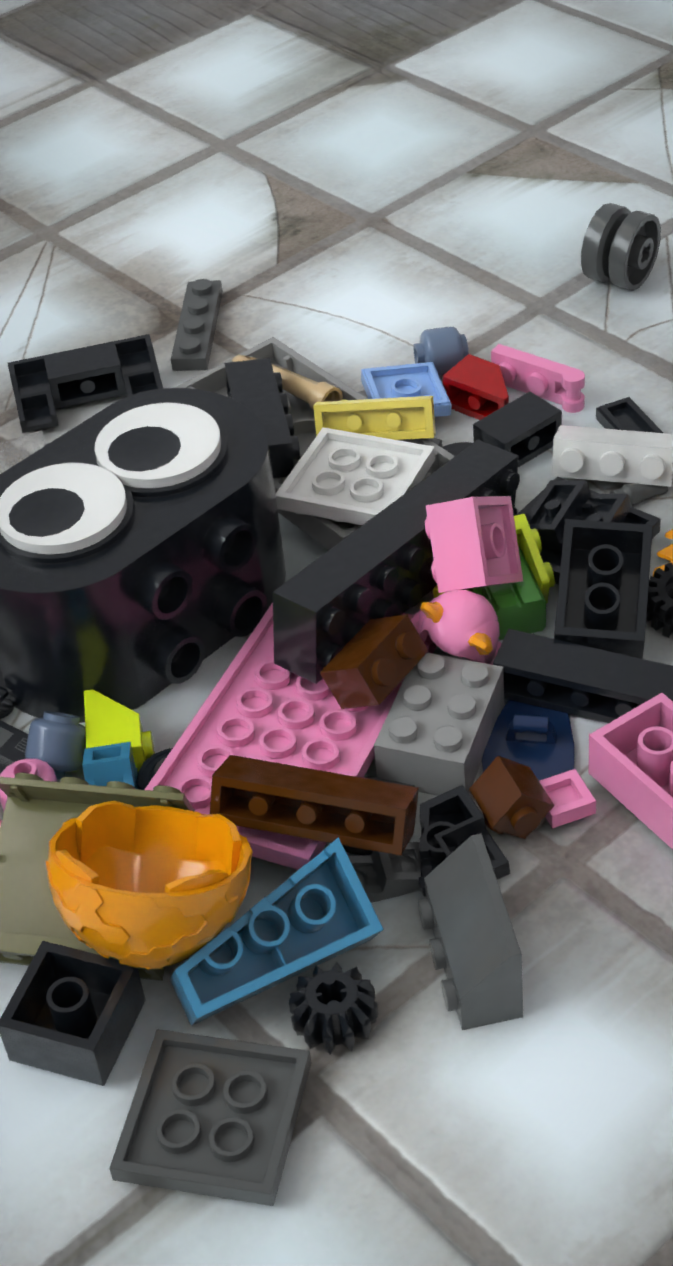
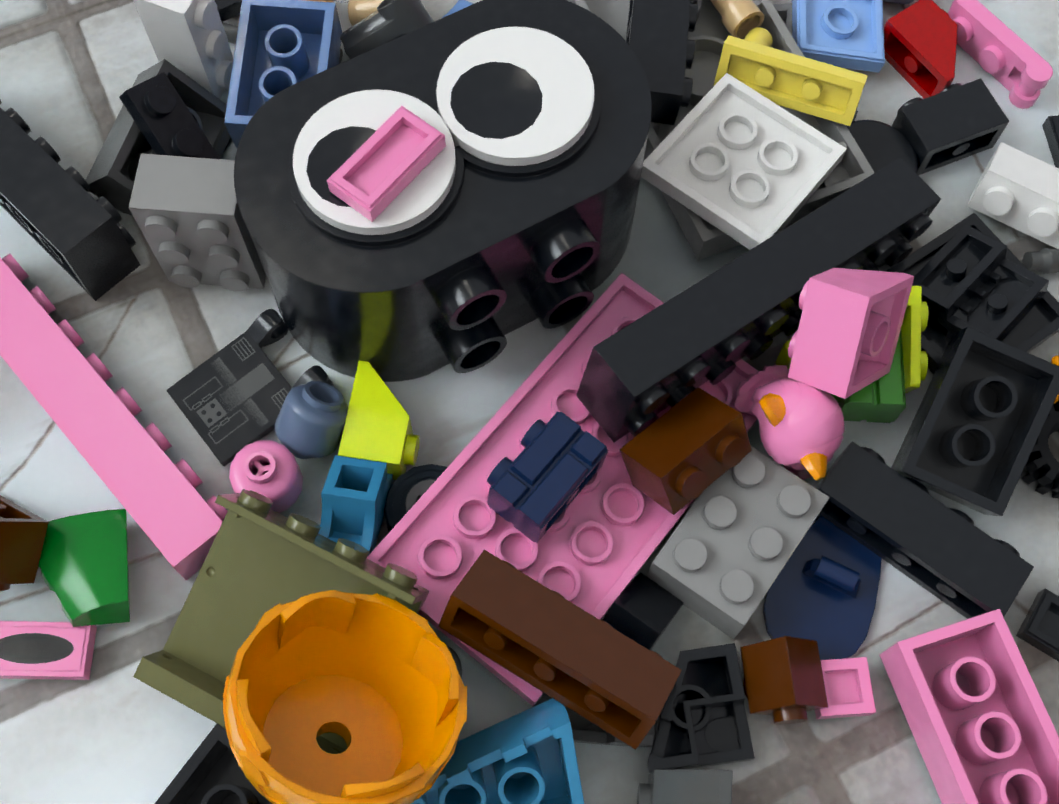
camera: 10 degrees right, 25 degrees up
(71, 500) = (386, 163): none -> bright pink tile
(265, 709) = (545, 475): none -> dark blue brick

